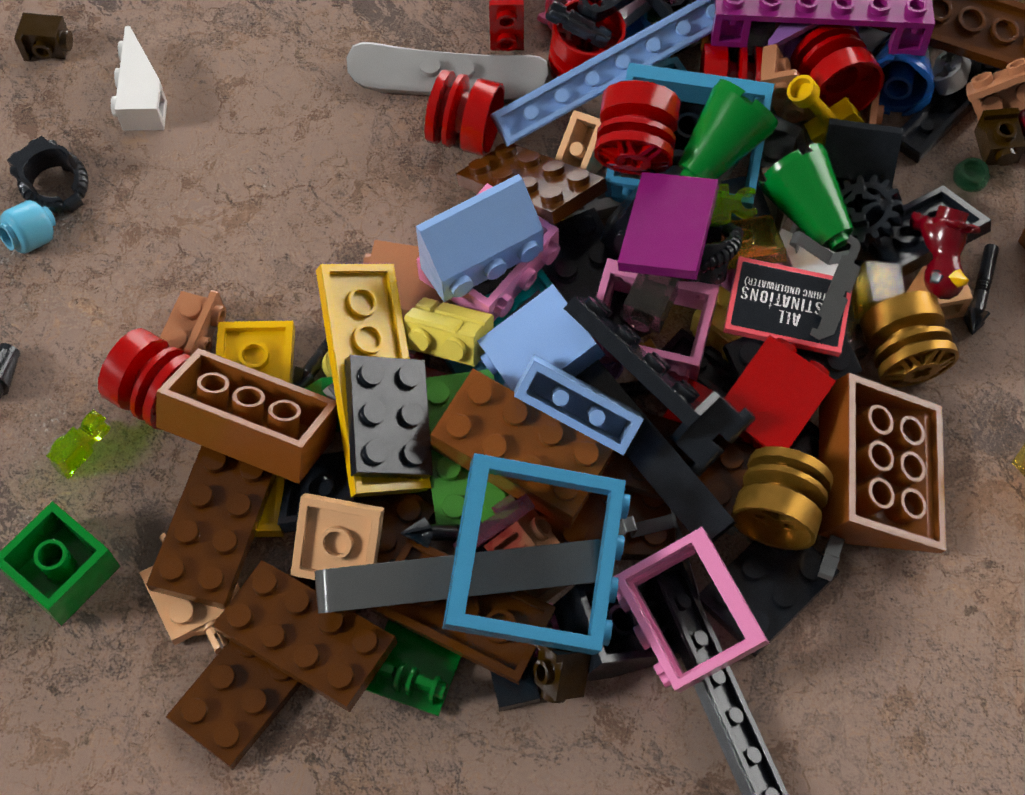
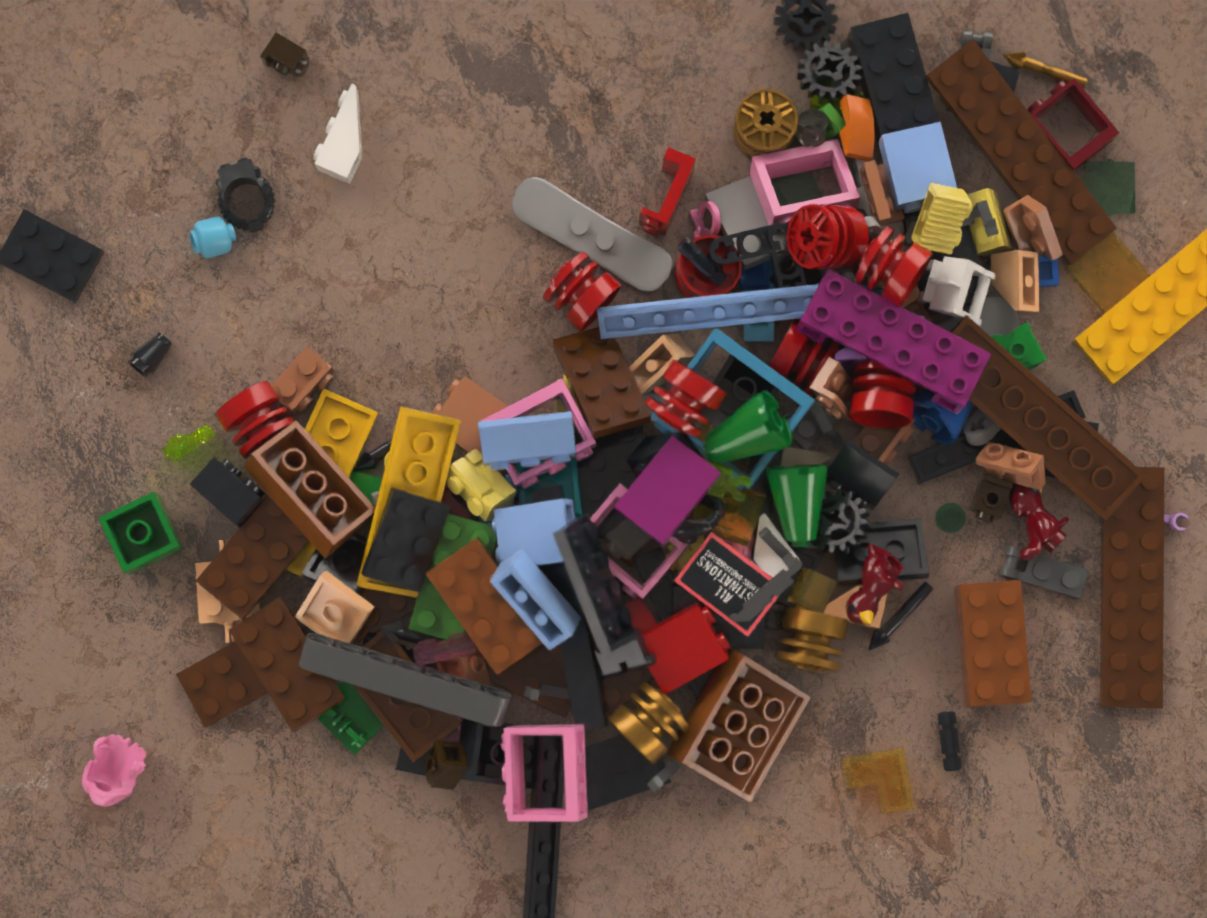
camera: 20 degrees right, 20 degrees up
(145, 466) = (227, 492): none -> black brick
(610, 550) = (493, 735): dark azure window -> none
(805, 93) = (836, 417): yellow bar -> none

